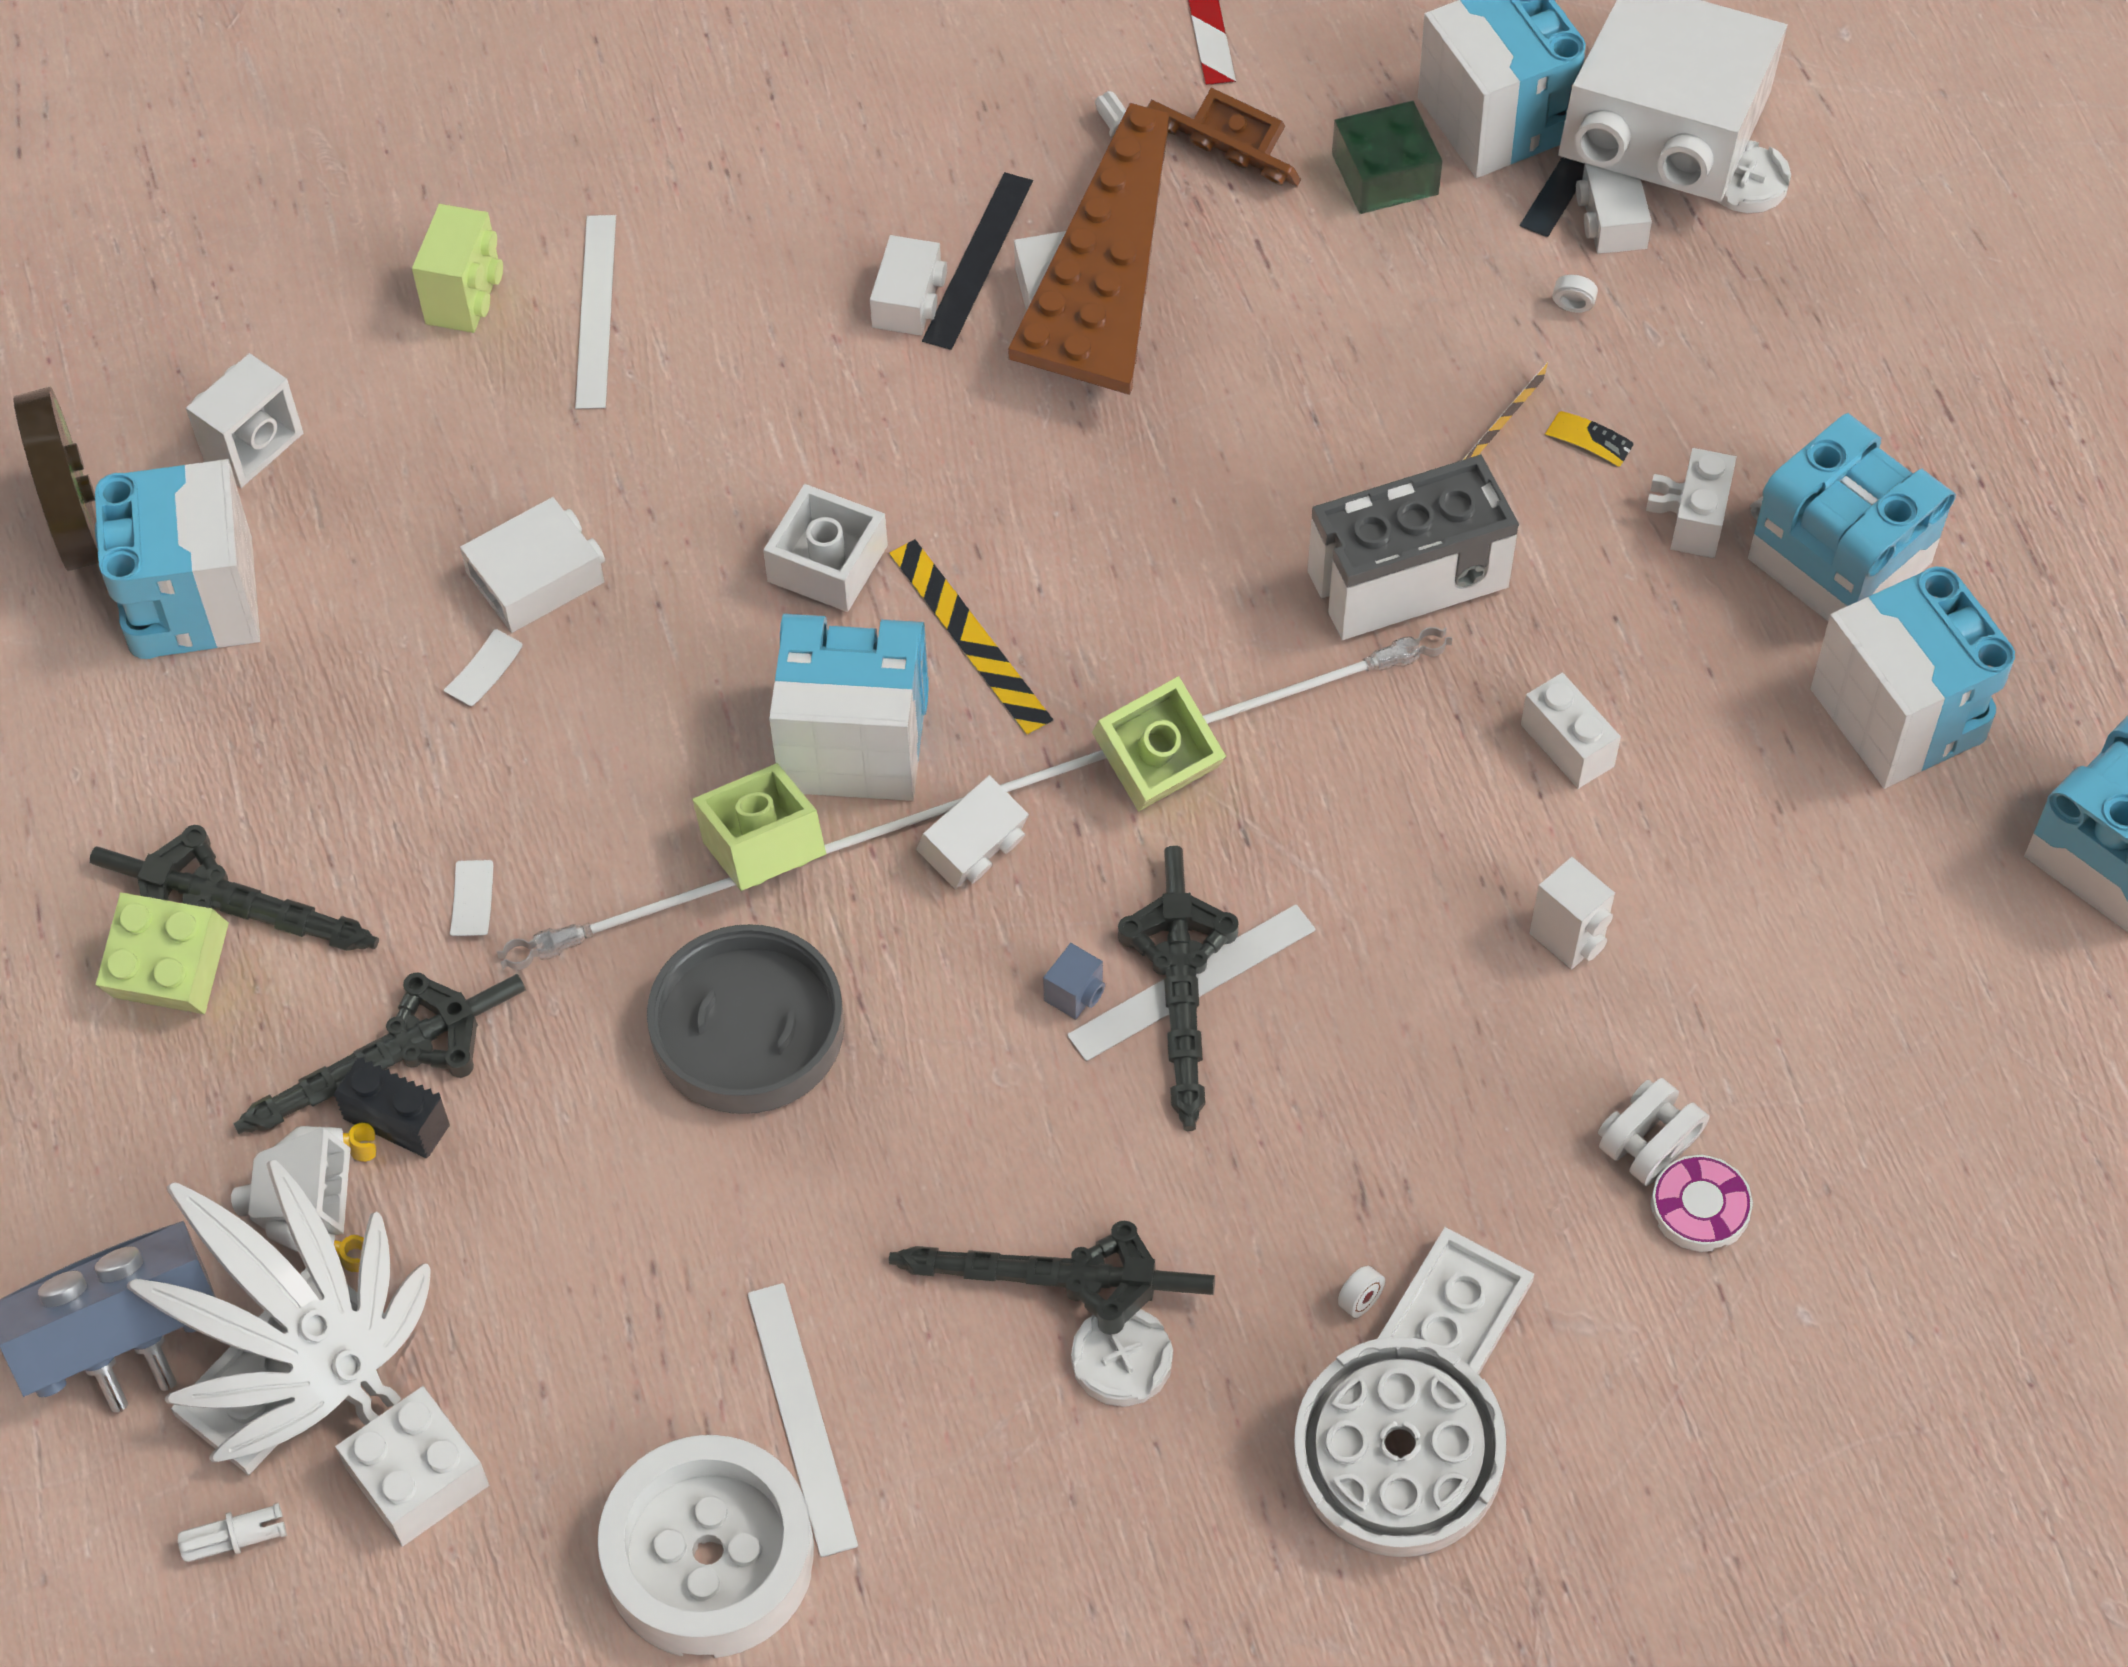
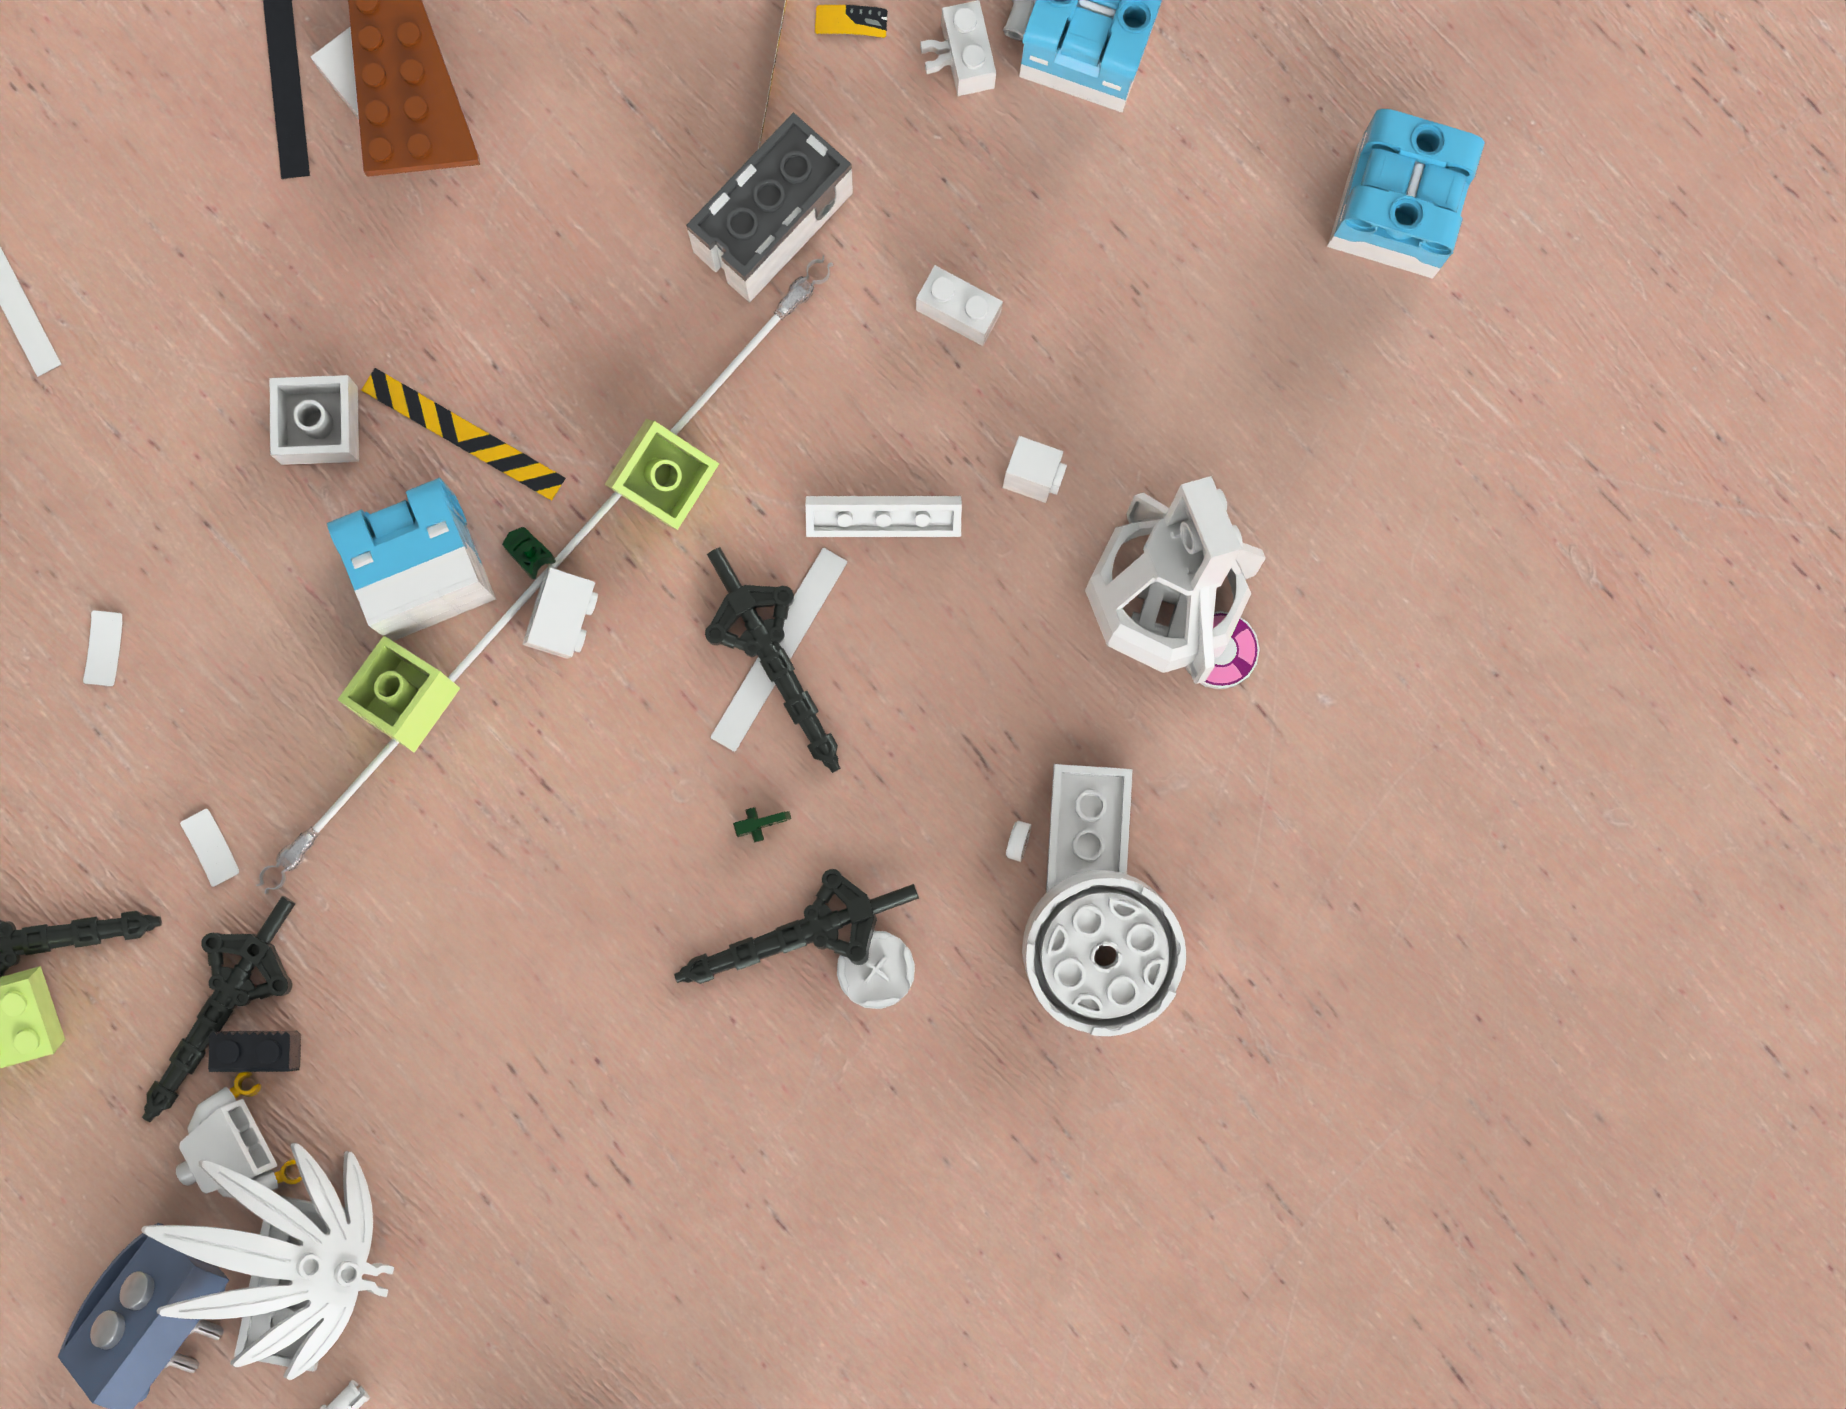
camera: 35 degrees left, 25 degrees up
(412, 1465) = (430, 1309): white brick -> none
(533, 563) = (90, 541): white brick -> none
(703, 1494) = (658, 1303): white brick -> none
(746, 1018) = (472, 849): dark grey piece -> none
(803, 1420) = (677, 1126): white sticker -> none
(907, 285) = (243, 136): white brick -> none
(972, 764) = (527, 551): none -> dark green piece
(1067, 1138) = (753, 824): none -> dark green piece
(1074, 981) = (697, 698): sand blue plate -> none
(1380, 896) = (883, 516): none -> white plate
(1701, 1036) = (1189, 551): none -> white plate
(1912, 673) = (1196, 143): piece -> none

